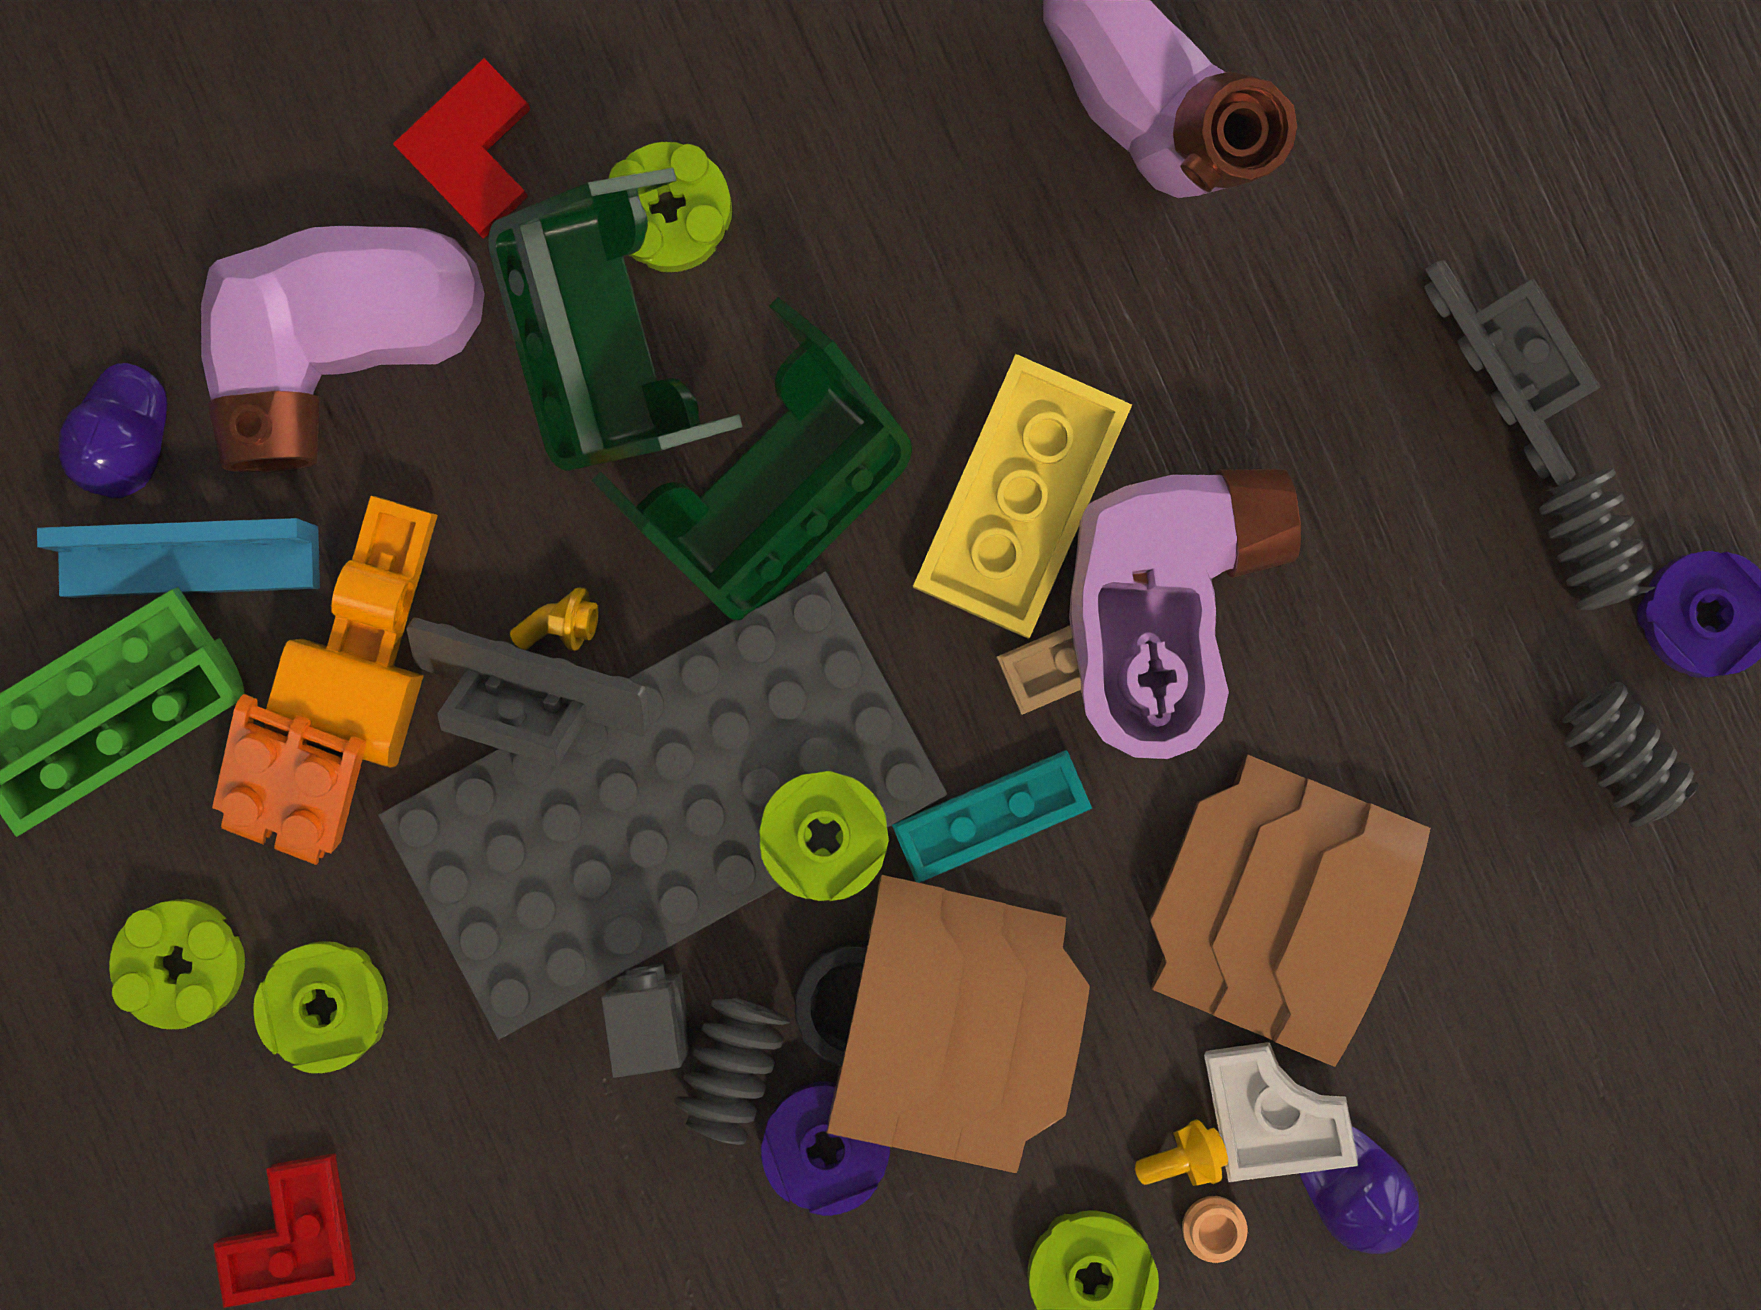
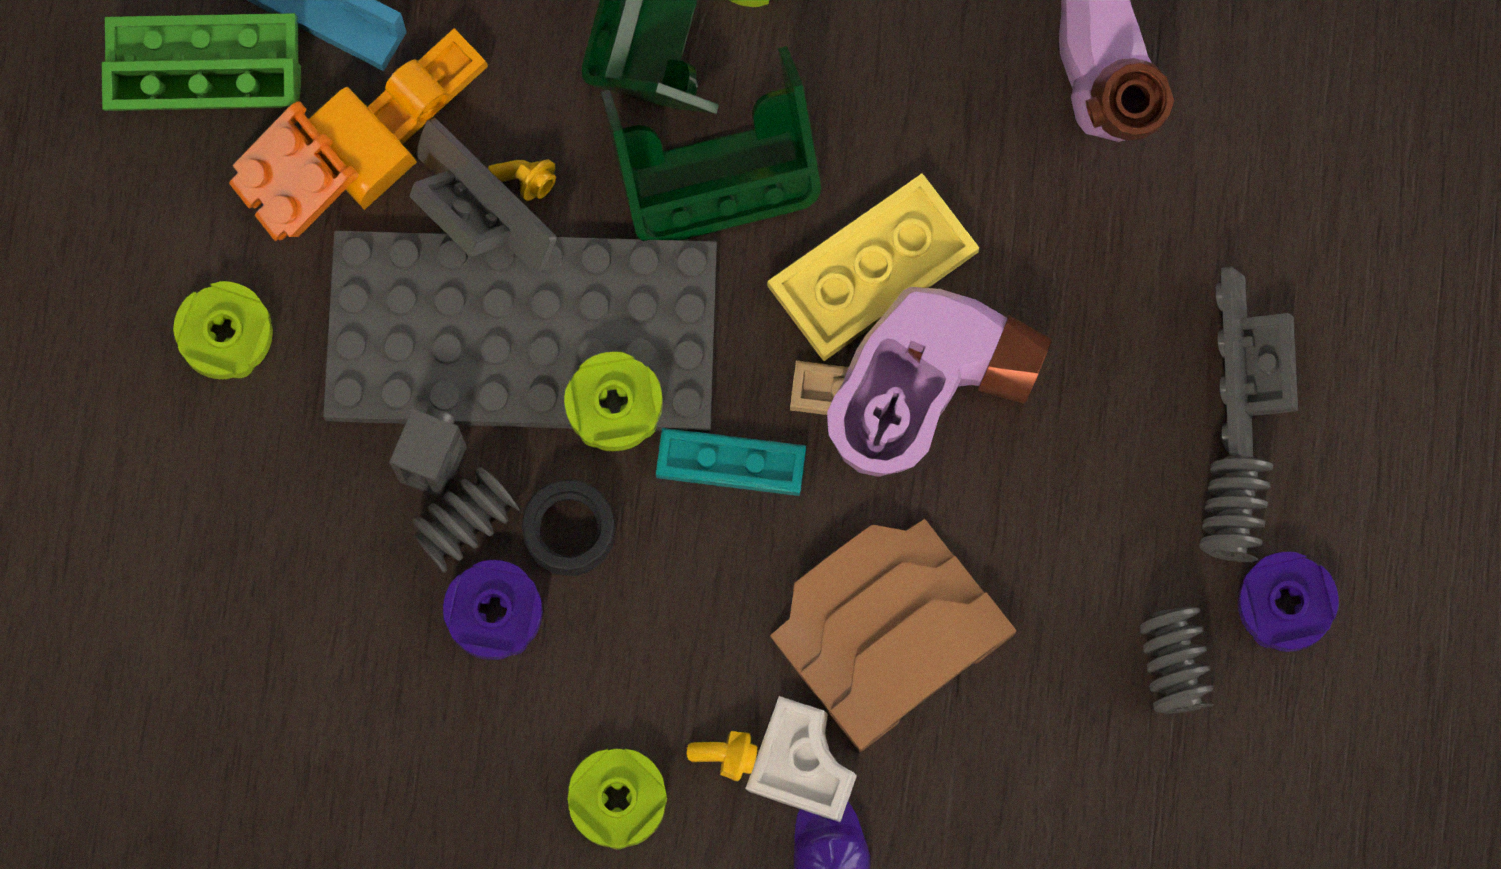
camera: 30 degrees right, 10 degrees down
(143, 983) = (146, 278): lime plate -> none
(304, 1251) = (113, 481): red tile -> none
(959, 1027) = (624, 577): medium nougat slope -> none
(1214, 1229) = (717, 815): light nougat plate -> none

